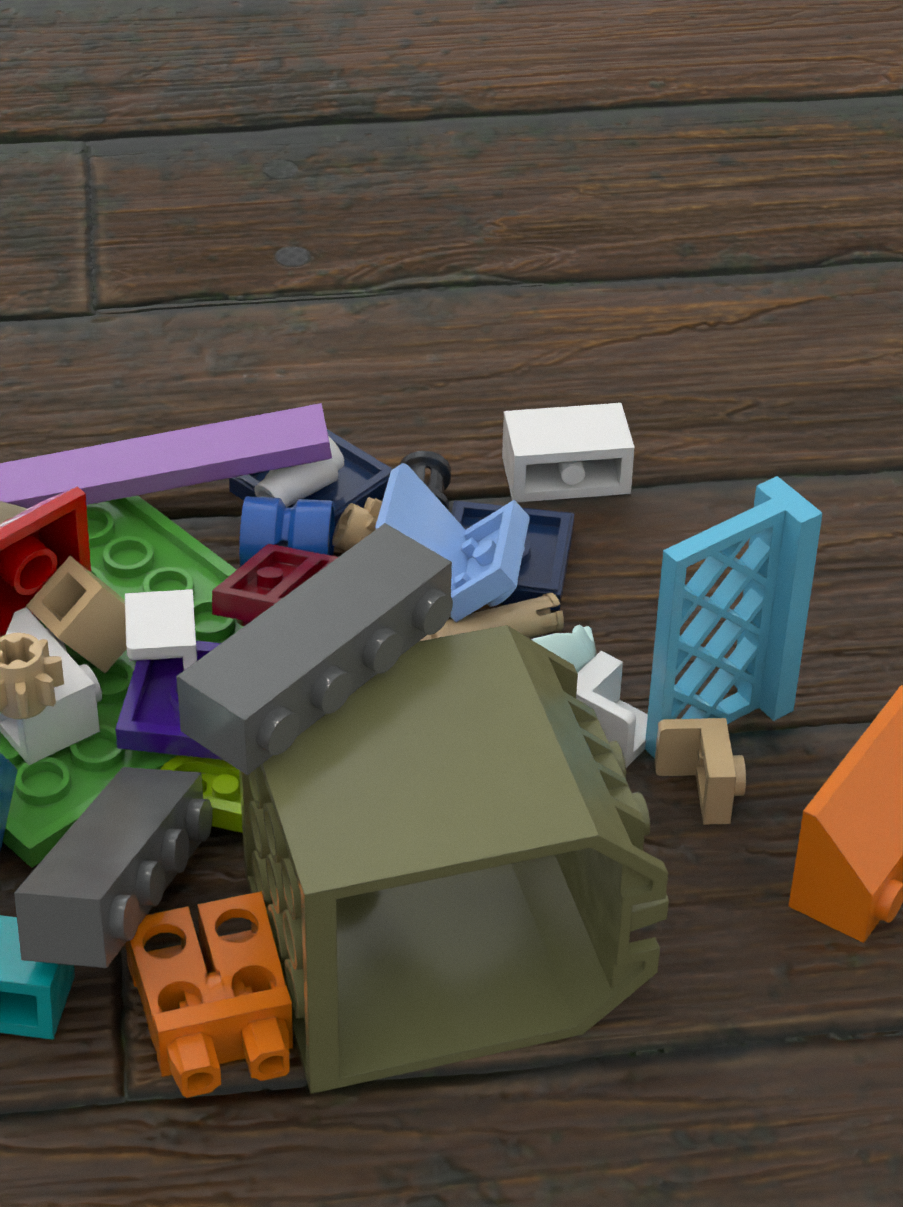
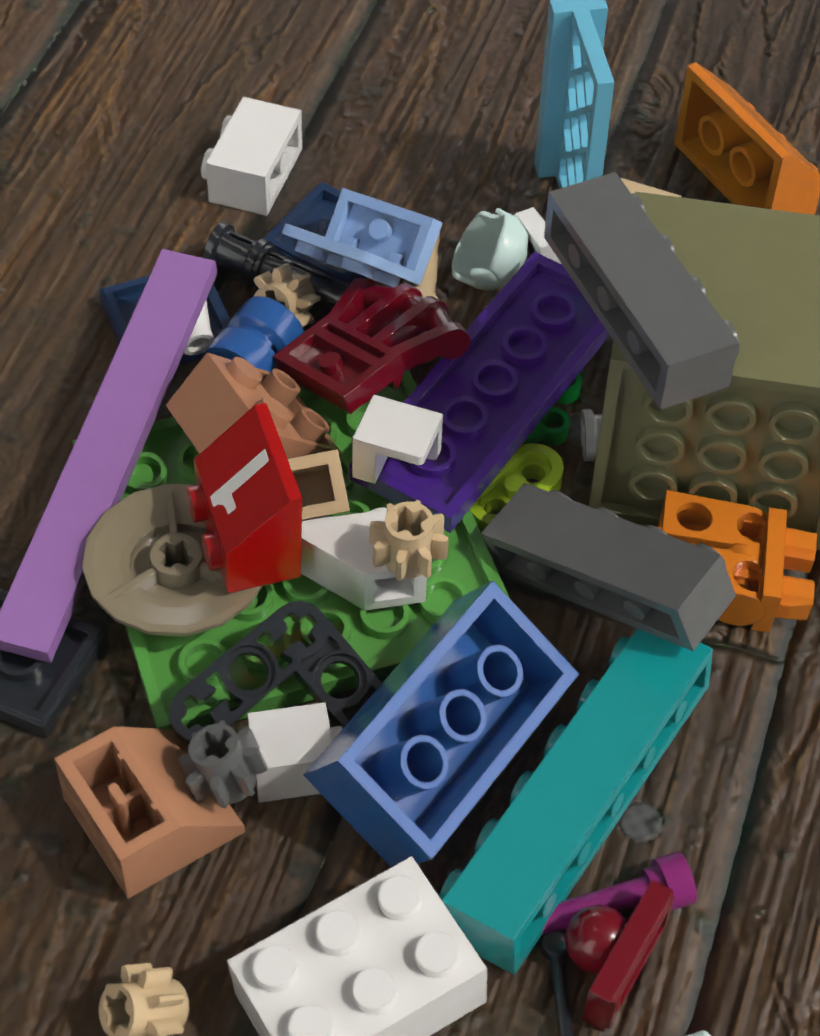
camera: 65 degrees left, 10 degrees up
(167, 542) = (226, 389): none -> nougat slope

